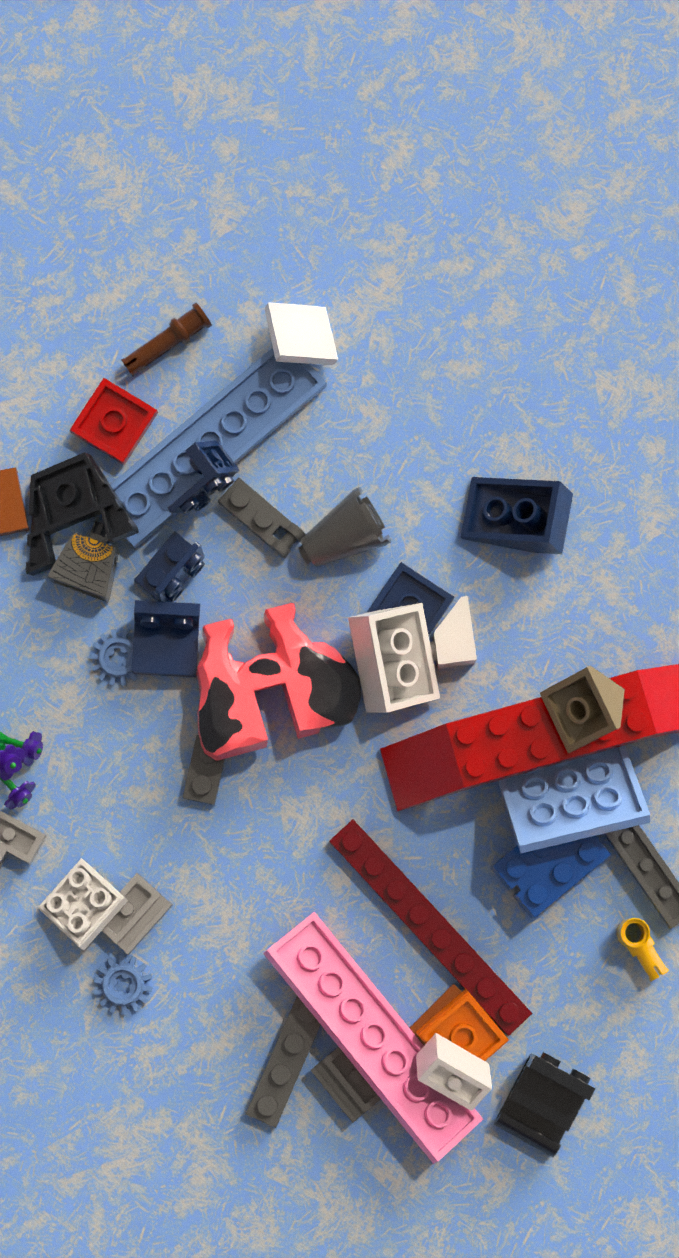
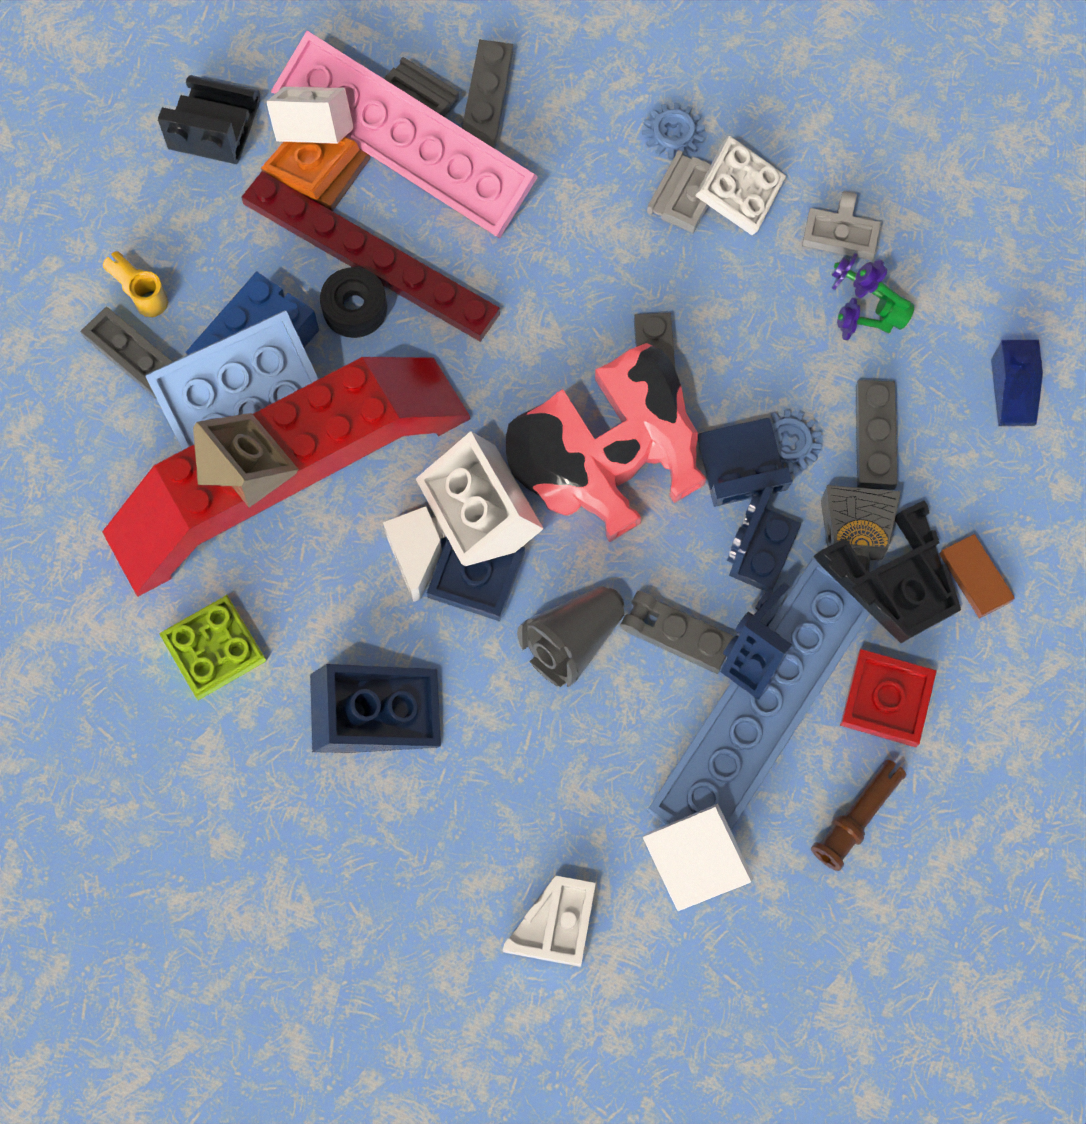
camera: 165 degrees right, 10 degrees down
(44, 643) = (876, 435): none -> dark grey plate
(418, 320) = (556, 924): none -> white wing
(473, 879) = (347, 283): none -> black tyre
(634, 602) = (212, 647): none -> lime tile

